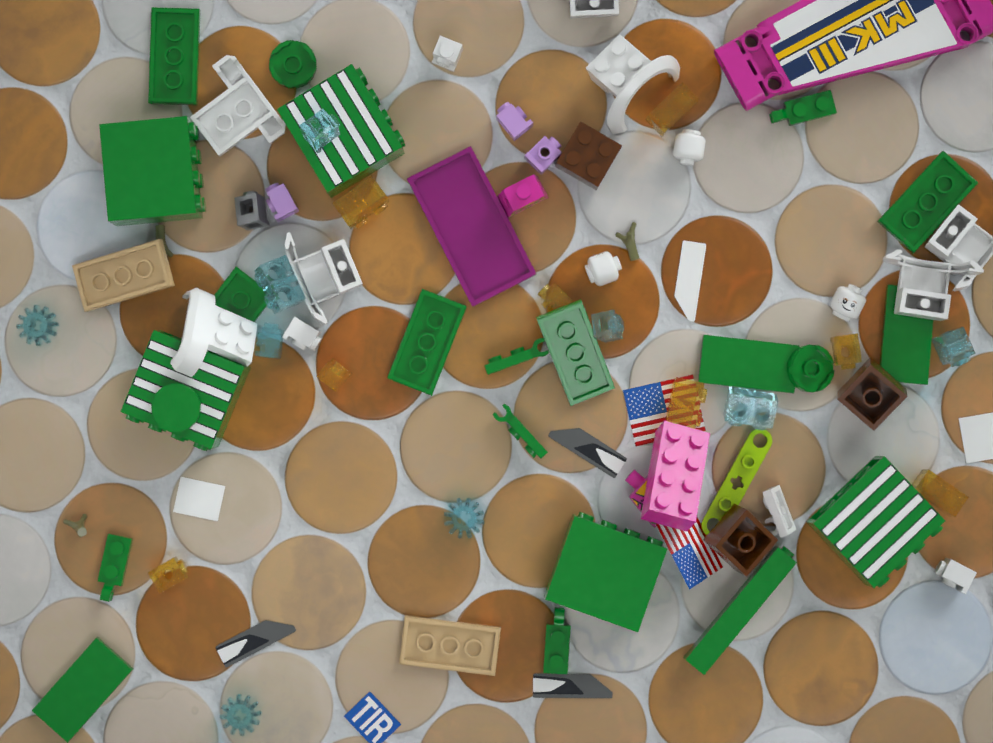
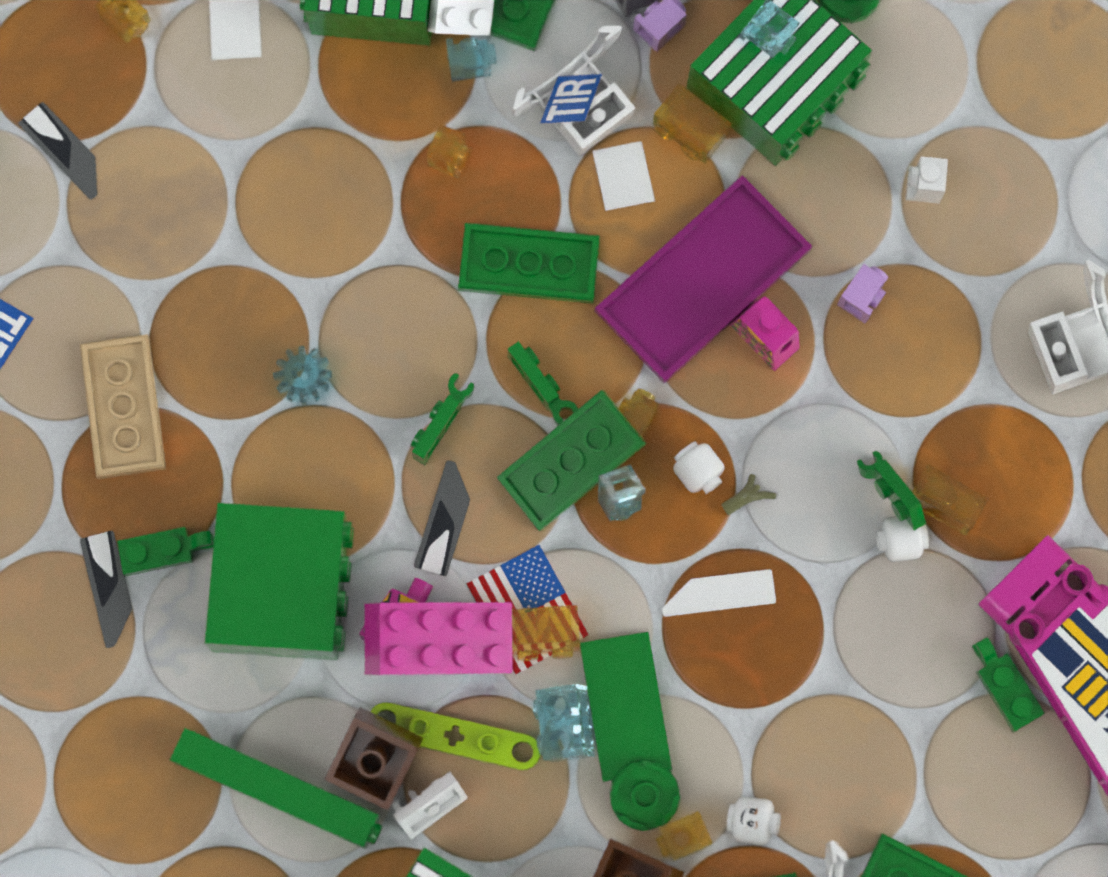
camera: 75 degrees right, 10 degrees down
(284, 283) = (553, 54): clear light blue brick -> none
(302, 335) = (492, 96): white brick -> none
(323, 280) = (571, 98): none -> blue sticker
(382, 259) = (623, 175): none -> white sticker
(540, 162) = (819, 350): lavender brick -> none
(588, 155) = (847, 404): reddish brown brick -> none
(623, 72) = (979, 412): white piece -> none
(654, 144) = (891, 486): none -> green plate
(691, 553) = (338, 690): sticker -> none

